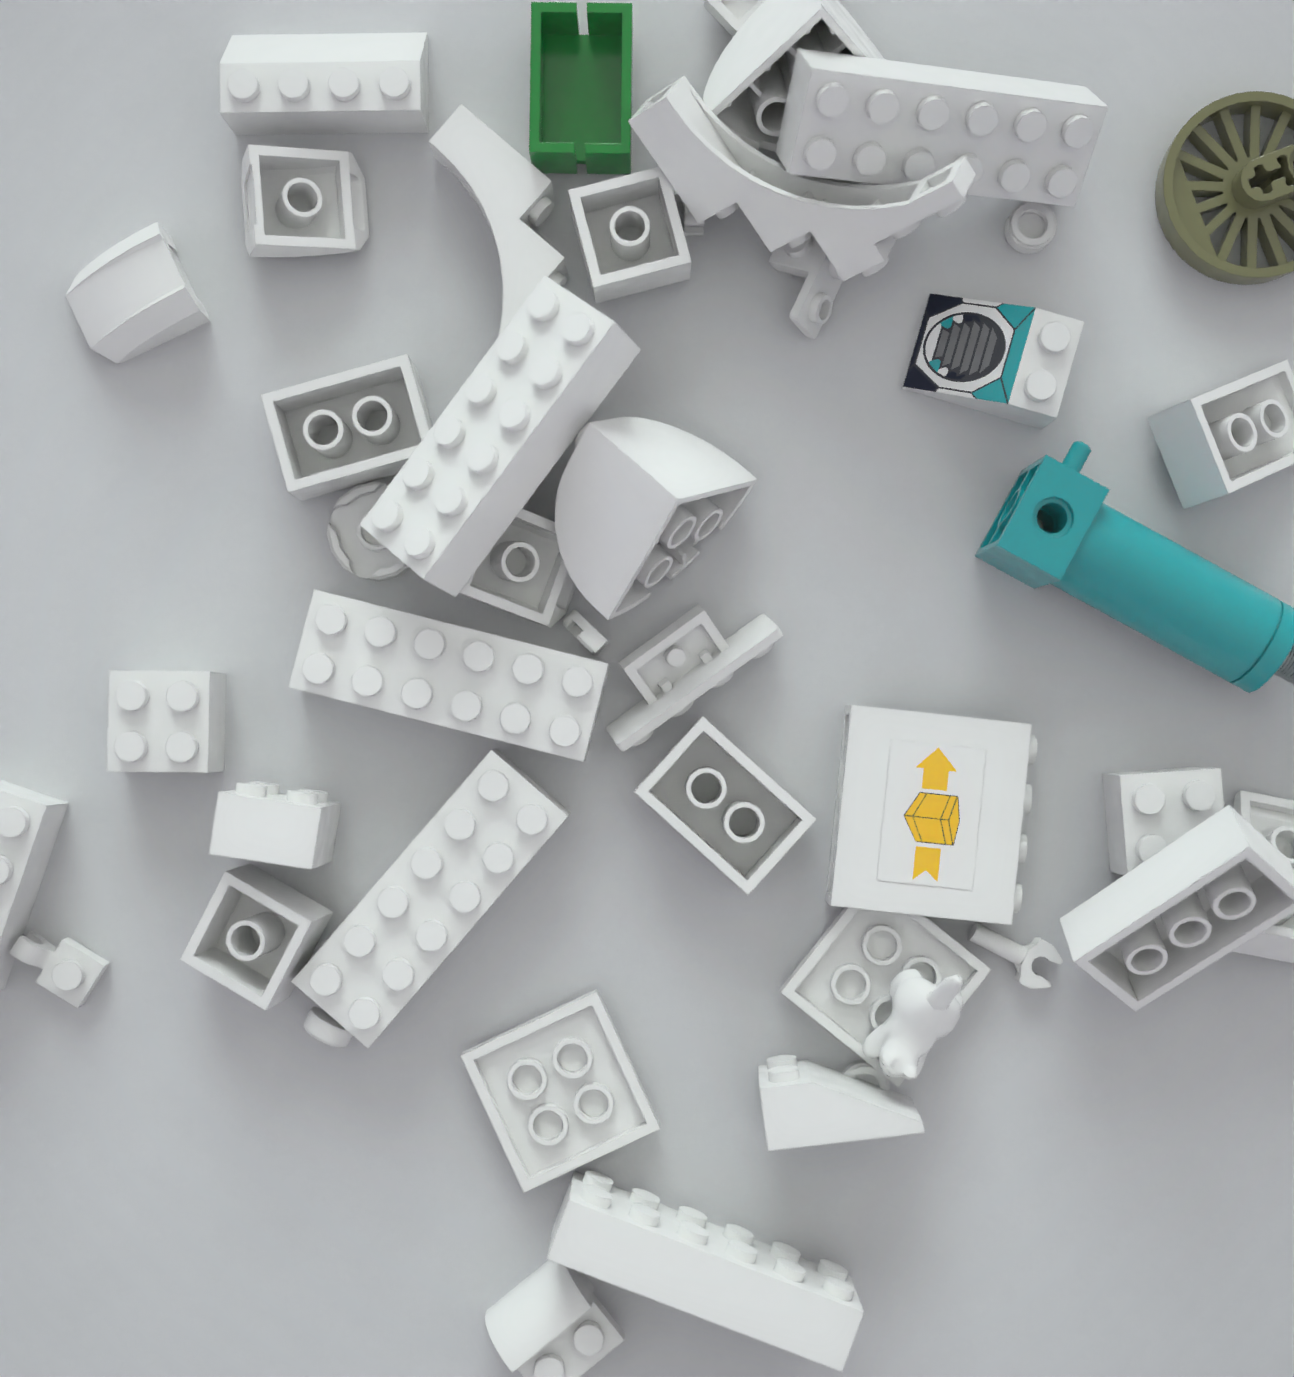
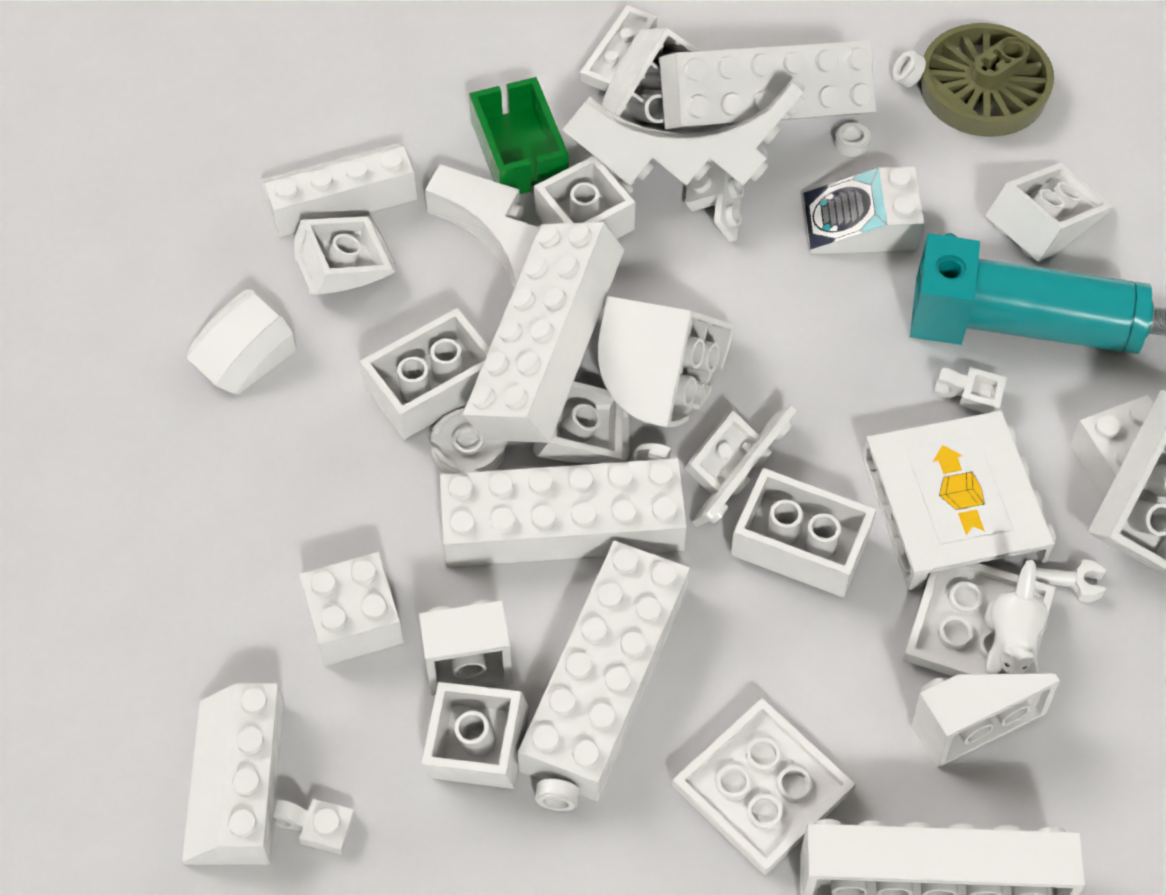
camera: 20 degrees left, 30 degrees down
(1022, 670) = (978, 389): none -> white plate
(1154, 139) = (909, 68): none -> white tile

